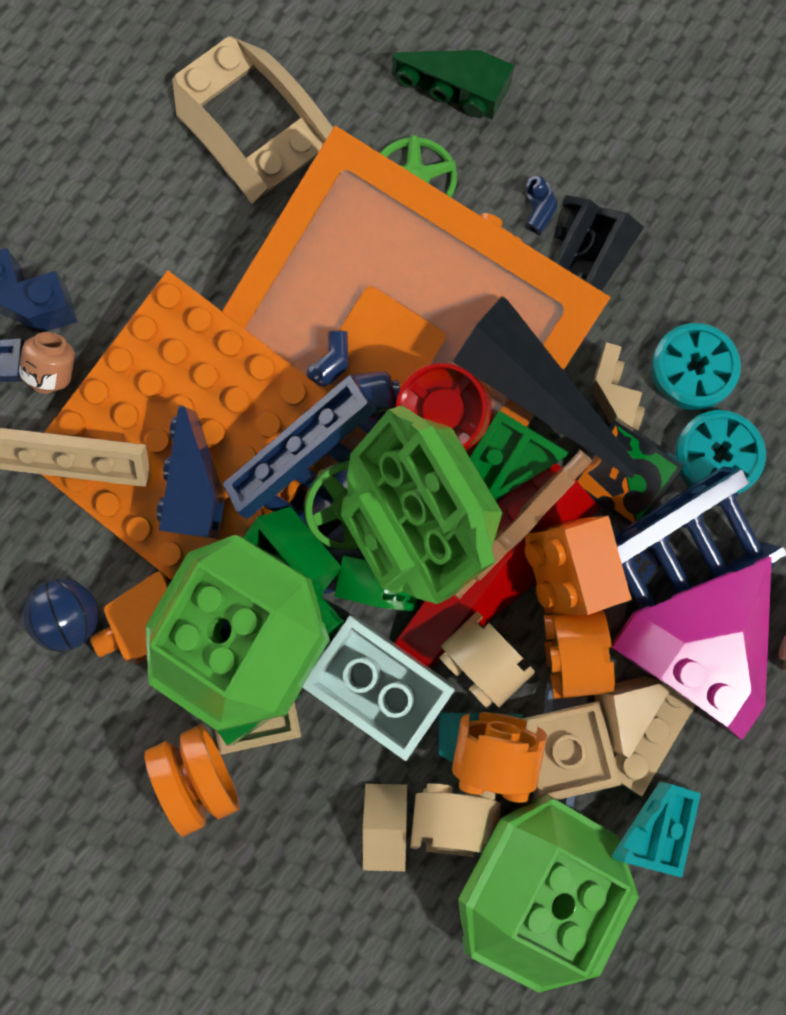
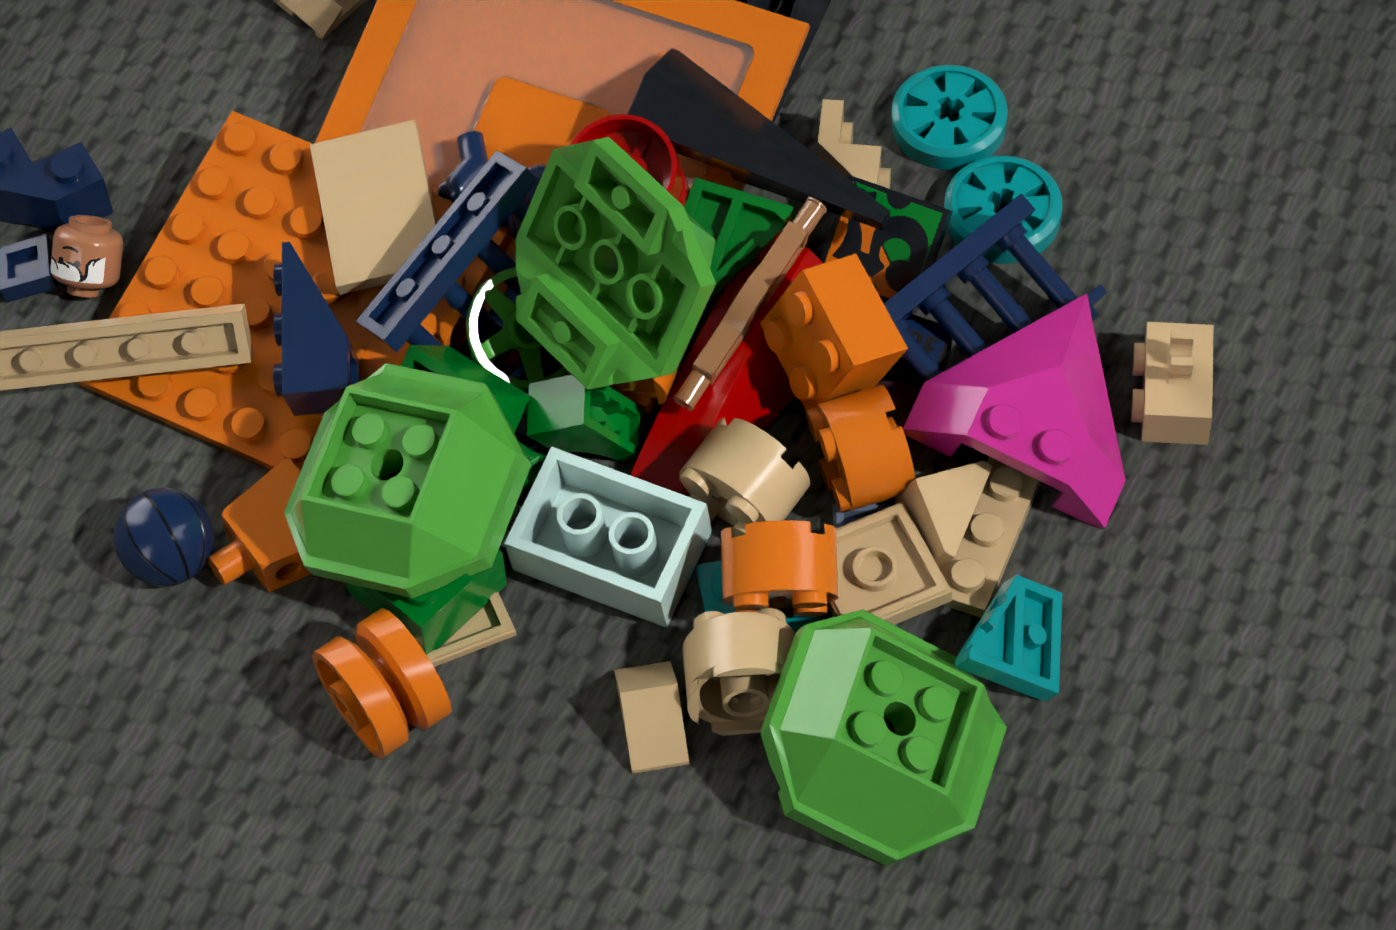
camera: 10 degrees left, 20 degrees down
(256, 378) = (373, 202): none -> tan tile

